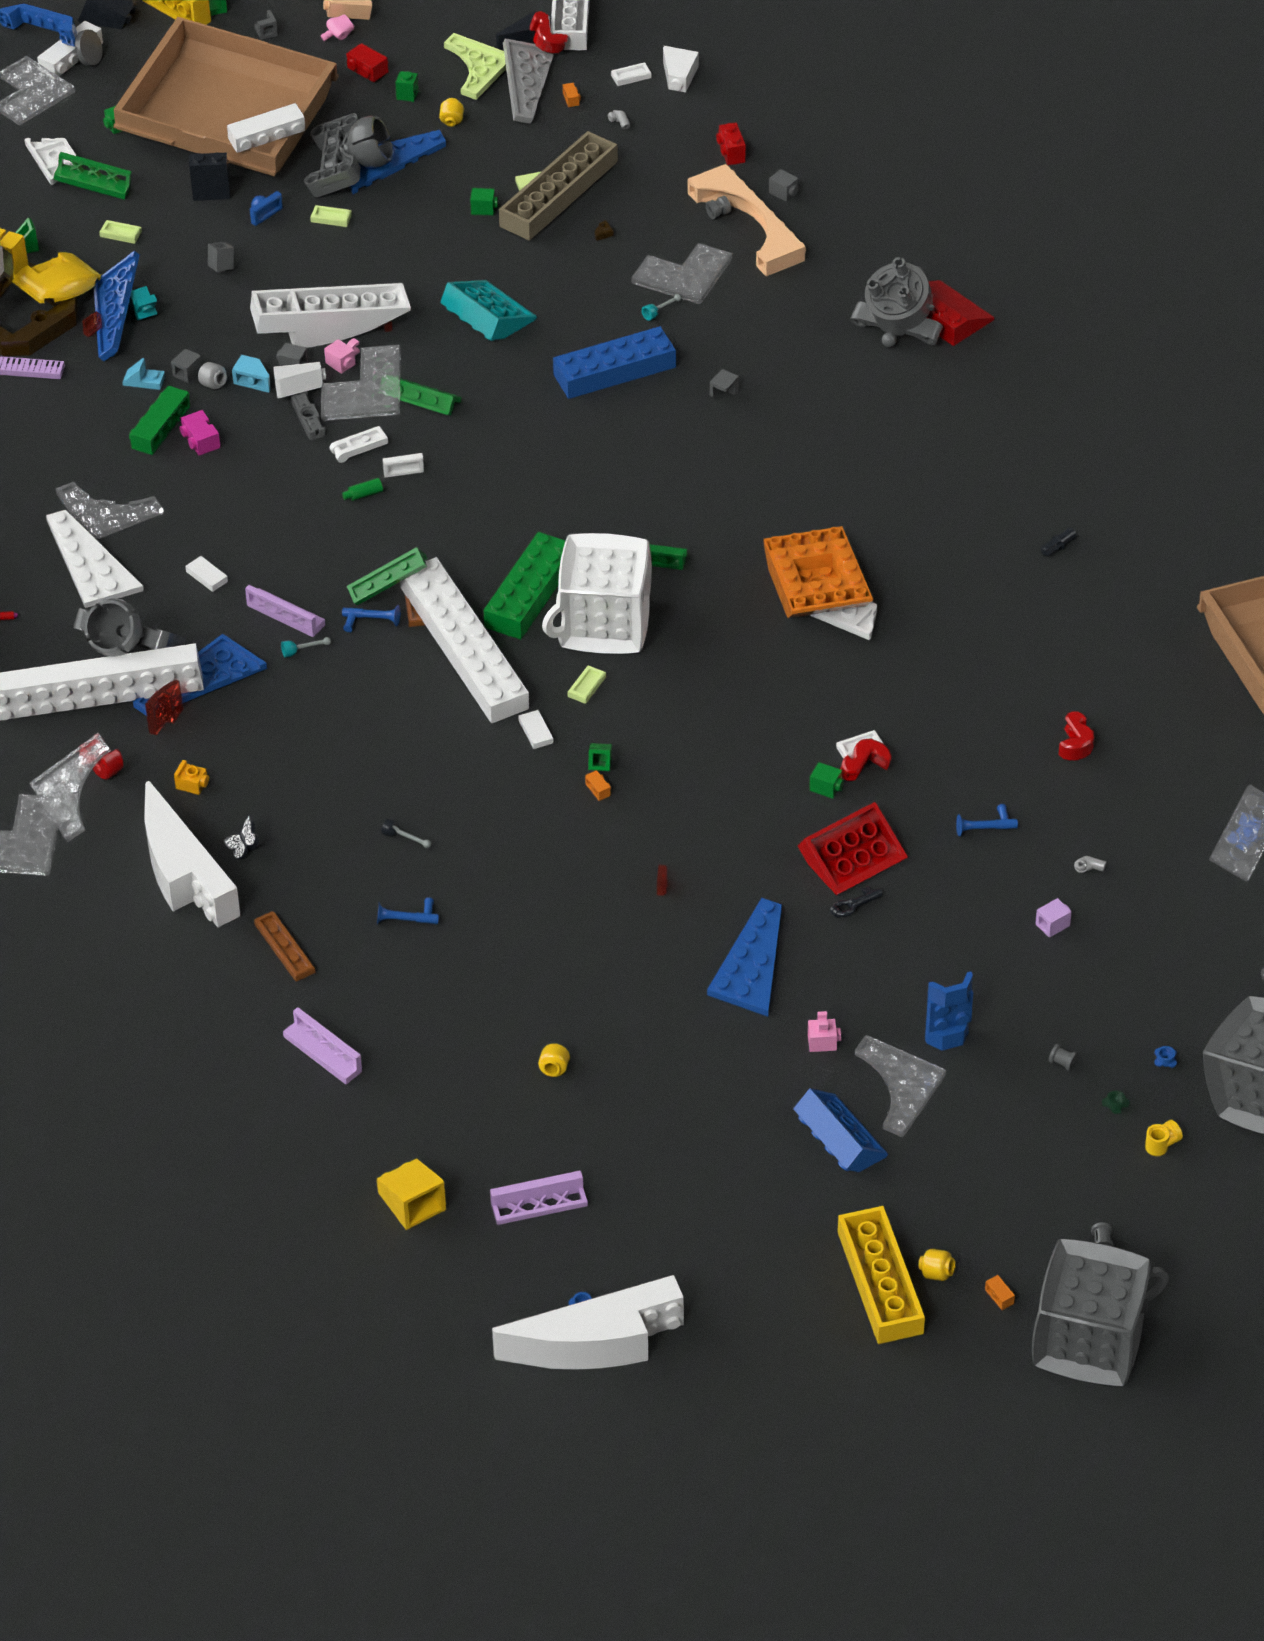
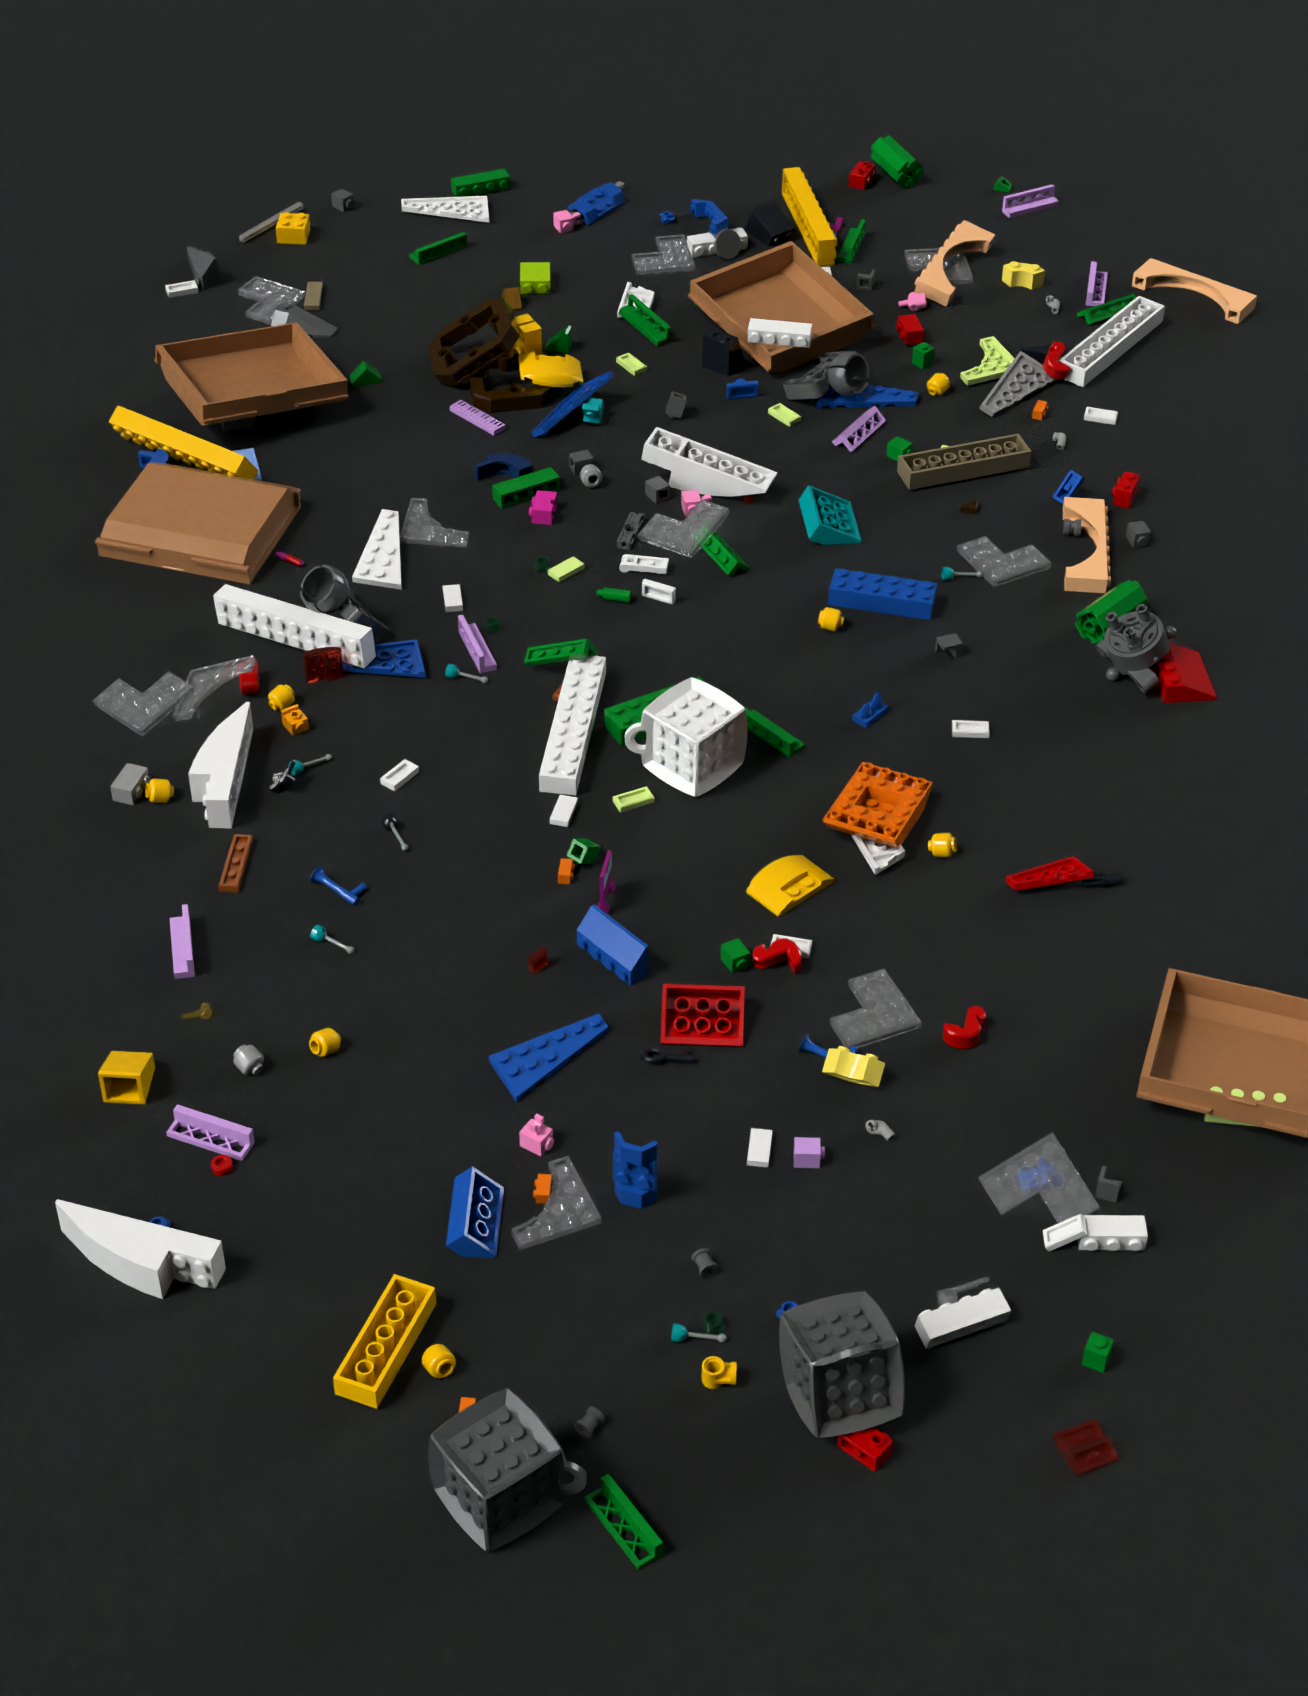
camera: 35 degrees right, 5 degrees down
(92, 324) = (548, 410): clear red tile -> none
(99, 926) = (130, 784): none -> light grey brick
(114, 404) = (502, 464): none -> dark blue arch
(136, 917) = (159, 790): none -> yellow head
(144, 378) = (547, 458): medium azure slope -> none
(153, 762) = (281, 697): none -> yellow head
(240, 819) = (299, 766): none -> hinge
(251, 374) = (618, 486): medium azure slope -> none
(259, 493) = (542, 564): none -> clear green plate
(277, 581) = (492, 624): none -> clear green plate
(286, 487) = (566, 569): none -> yellowish green tile
(298, 378) = (643, 502): white slope -> none
(347, 777) = (399, 775): none -> white tile
(352, 613) = (546, 685): blue piece -> none
(411, 1098) = (204, 1012): none -> clear yellow hand
(417, 193) = (859, 424): none -> lavender fence
(440, 967) = (320, 933): none -> hinge
(503, 1115) = (248, 1059): none -> light grey head
(576, 1219) = (221, 1165): none -> red tile
(592, 412) = (830, 619): none -> yellow head
(660, 773) = (606, 882): none -> magenta flag
(679, 67) = (1140, 425): white slope -> none
(679, 167) = (1069, 486): none -> blue slope
(714, 486) = (871, 712): none -> blue tile
(718, 829) = (613, 945): none -> slope
(800, 690) = (787, 883): none -> yellow slope
(815, 457) = (971, 729): none -> white tile
(837, 277) = (1120, 599): none -> green brick
(870, 1075) = (543, 1188): none -> orange piece
(901, 581) = (942, 845): none -> yellow head
(994, 761) = (883, 1012): none -> clear plate
(1008, 936) = (759, 1147): none -> white tile
(1014, 559) = (1052, 873): none -> red wing
(1022, 822) = (853, 1067): none -> light yellow brick
(1098, 1125) = (680, 1333): none -> hinge
(1208, 1291) = (633, 1519): none -> green fence

